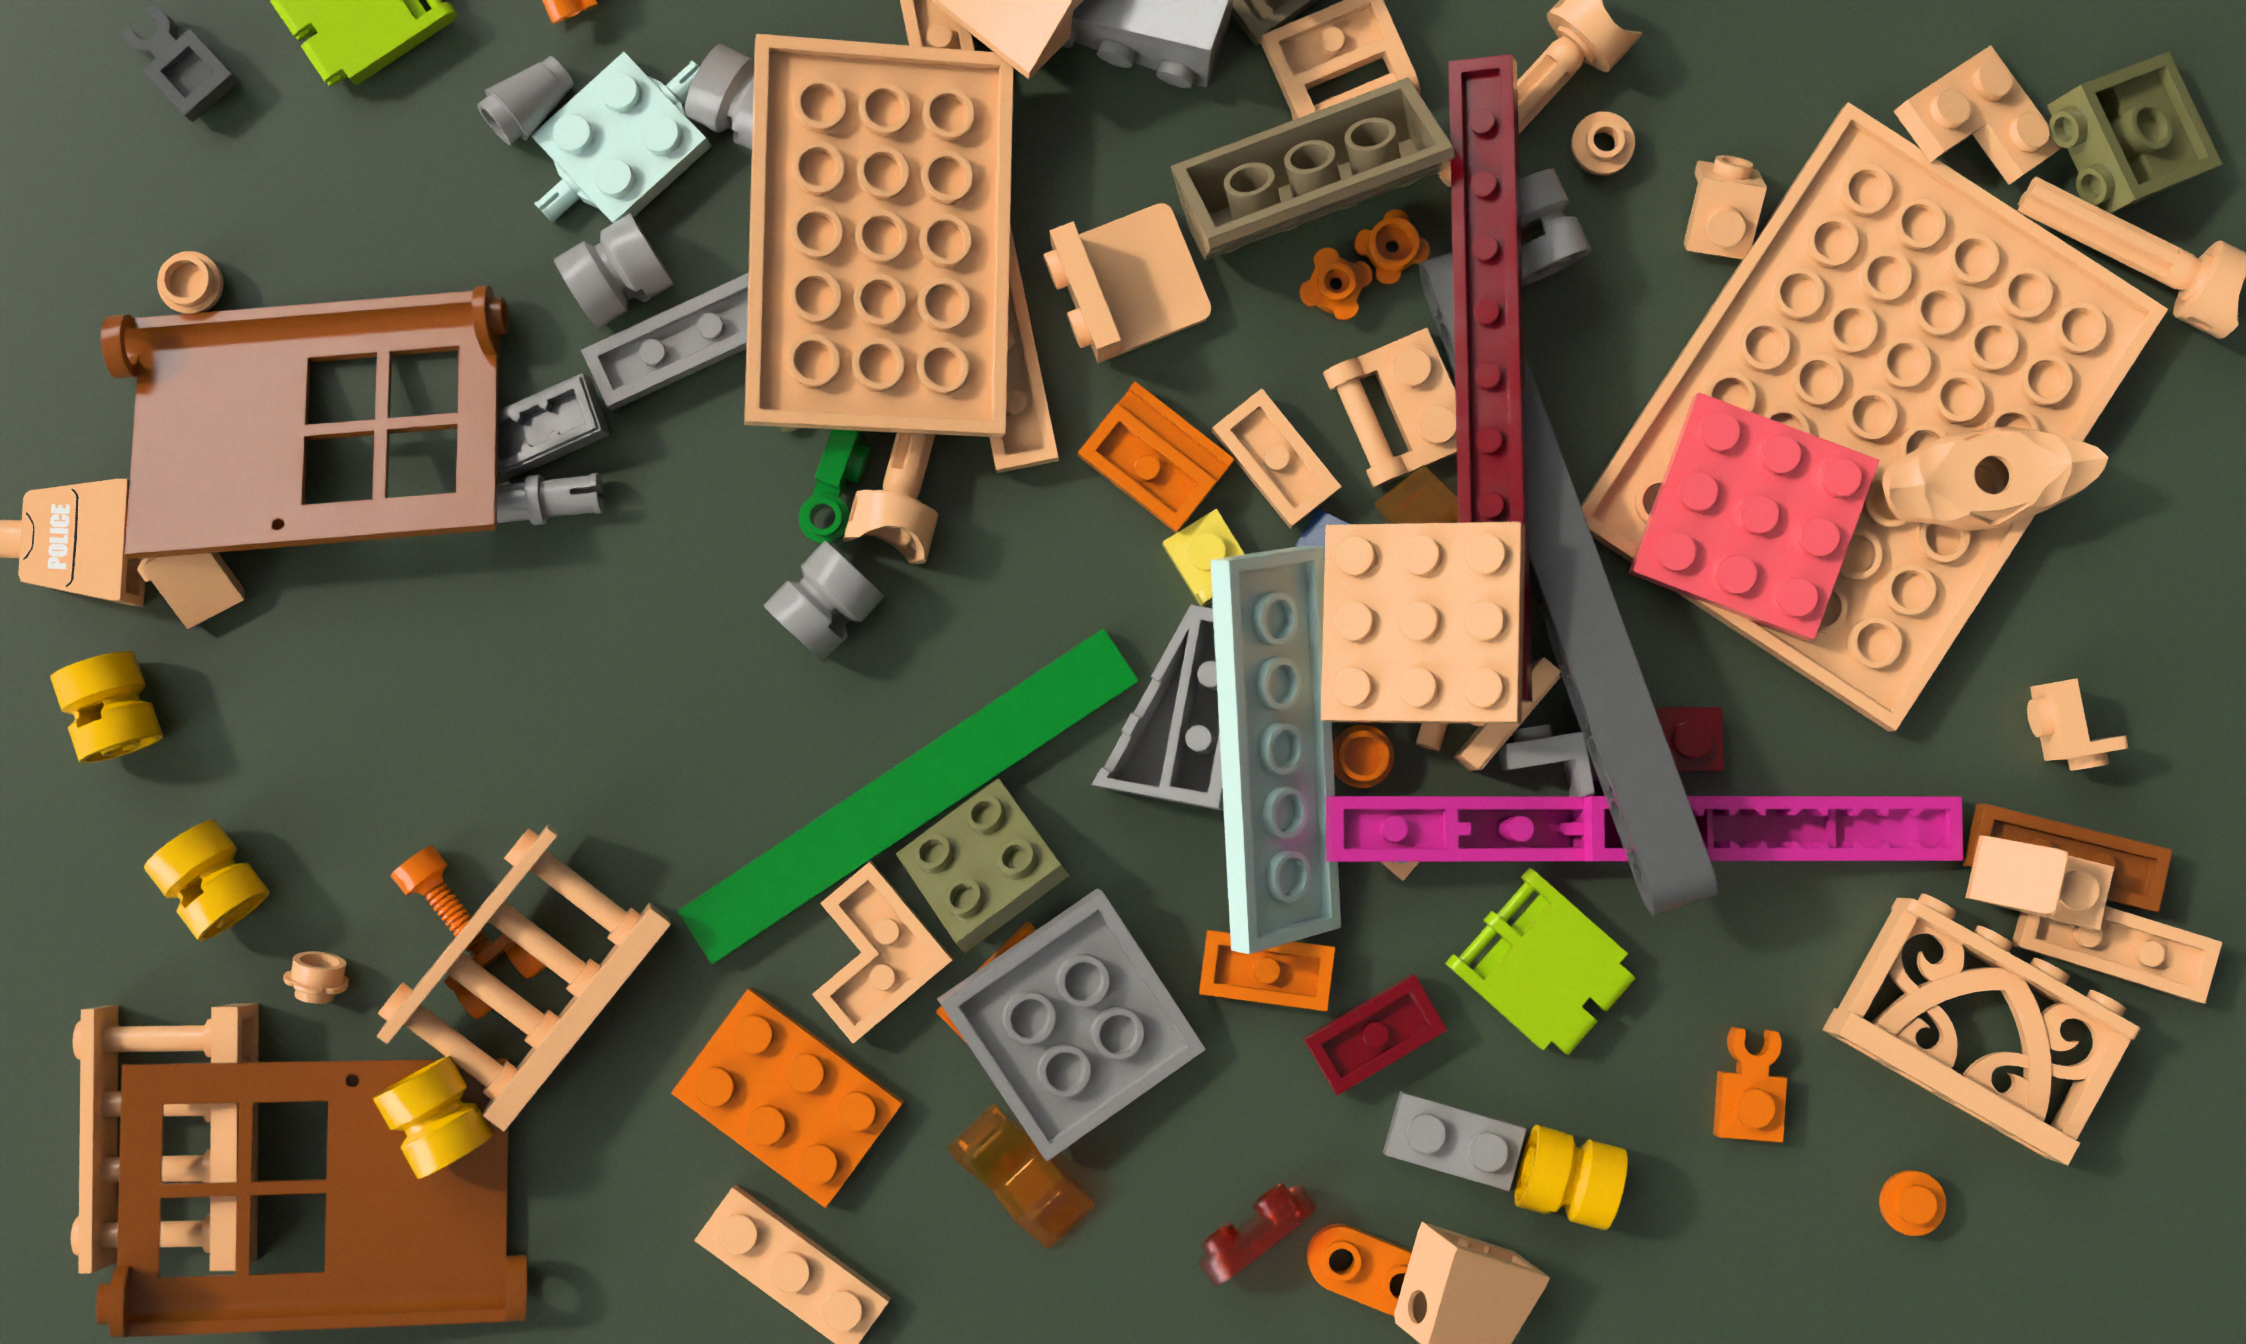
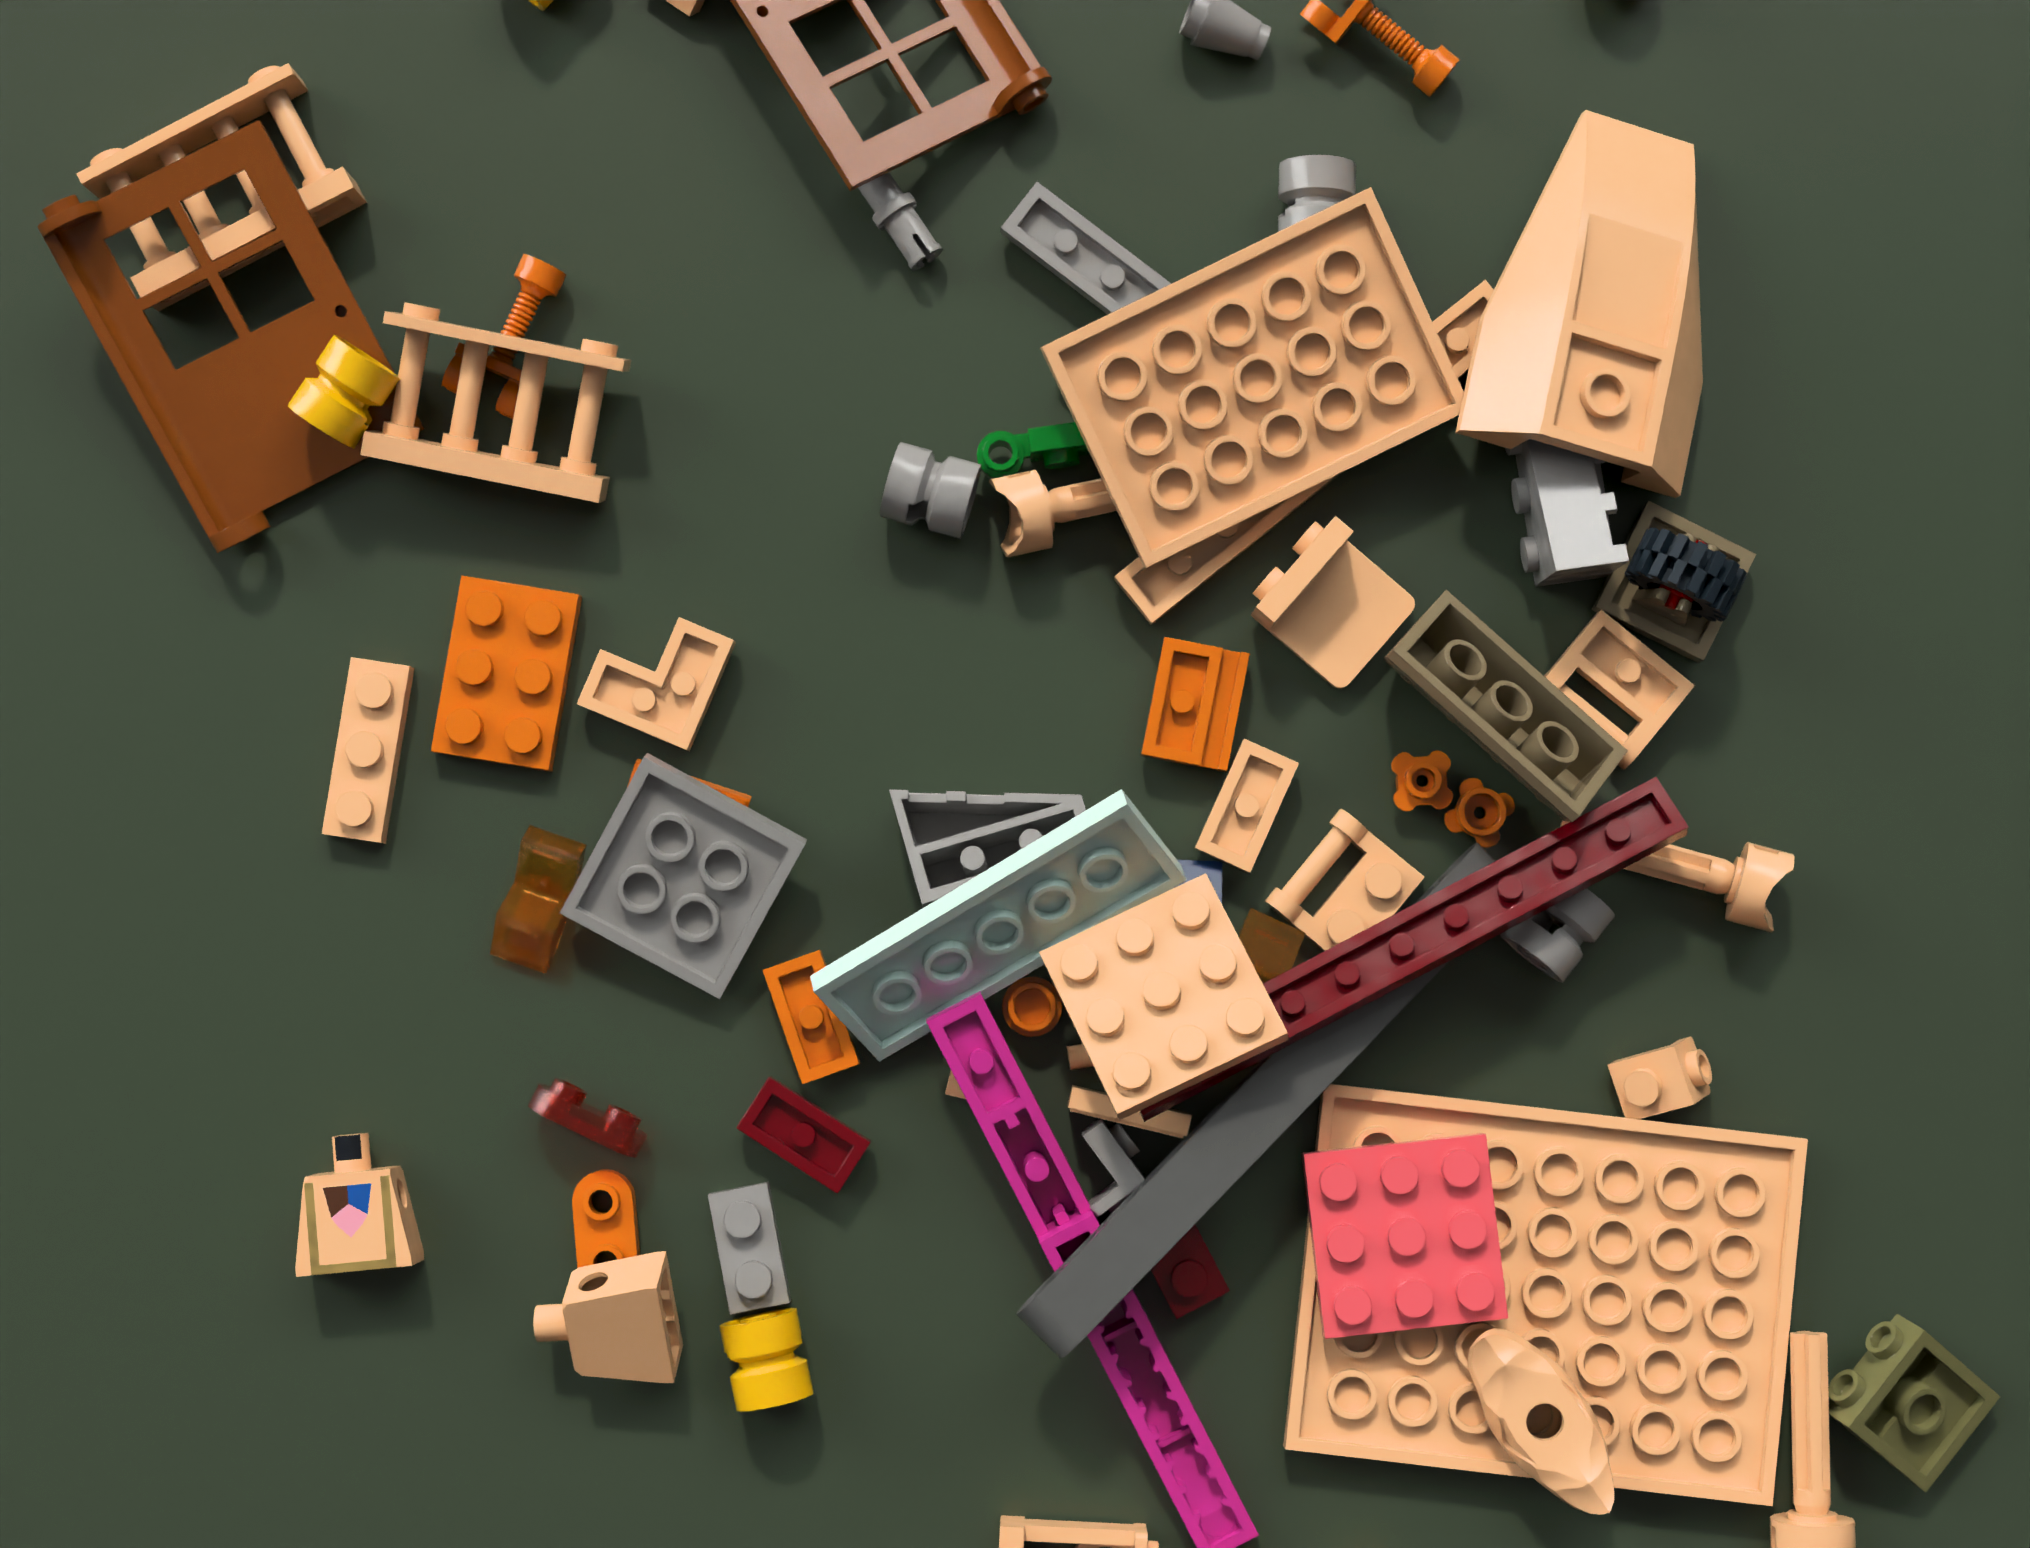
camera: 70 degrees right, 0 degrees up
(206, 879) = (445, 105): yellow wheel -> none
(317, 976) = (411, 238): light nougat plate -> none
(549, 426) = (960, 188): dark grey plate -> none
(613, 271) = (1116, 174): light grey wheel -> none
(620, 141) = (1229, 122): light aqua plate -> none
(907, 796) = (806, 645): green tile -> none
(982, 865) = (777, 734): olive plate -> none
(1195, 547) = (1141, 781): light yellow bracket -> none
(1544, 966) = (933, 1250): lime plate -> none
(1598, 161) = (1644, 952): light nougat plate -> none
(1750, 1100) = (910, 1481): orange plate -> none
(1982, 102) = (1870, 1257): light nougat plate -> none

